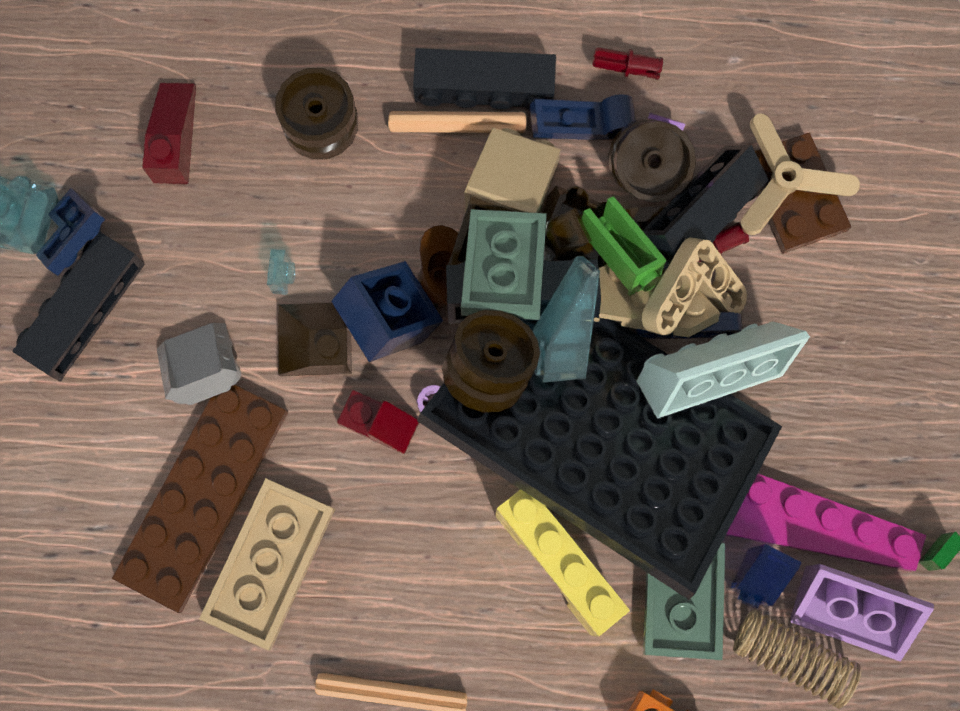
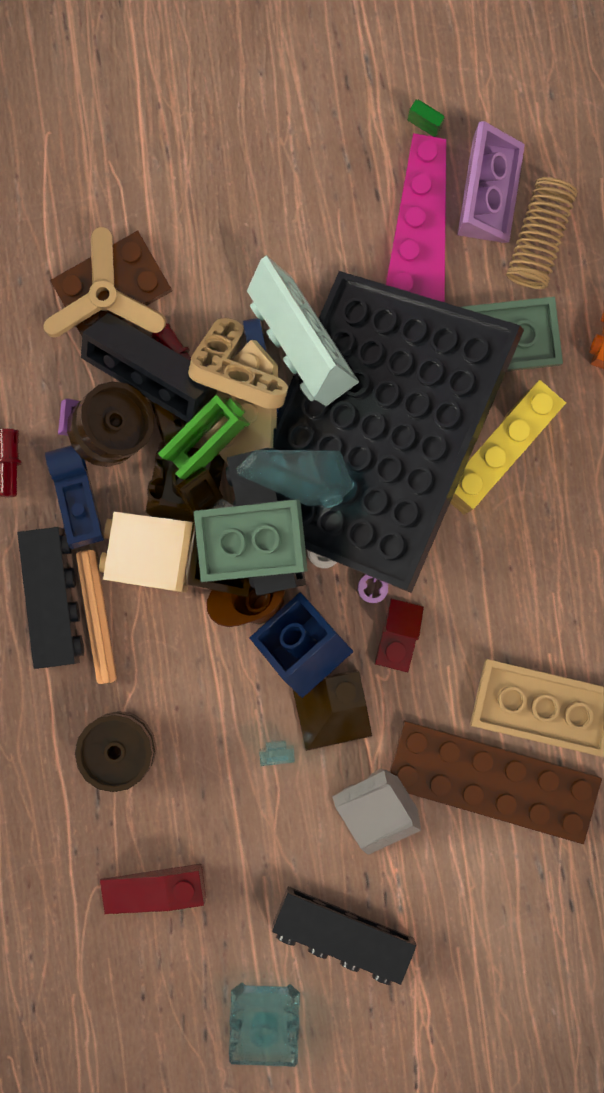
camera: 105 degrees left, 10 degrees up
(77, 224) = (272, 954): dark blue plate -> none
(490, 360) = (346, 536): dark brown wheel -> none
(763, 576) = (478, 270): clear blue slope -> none

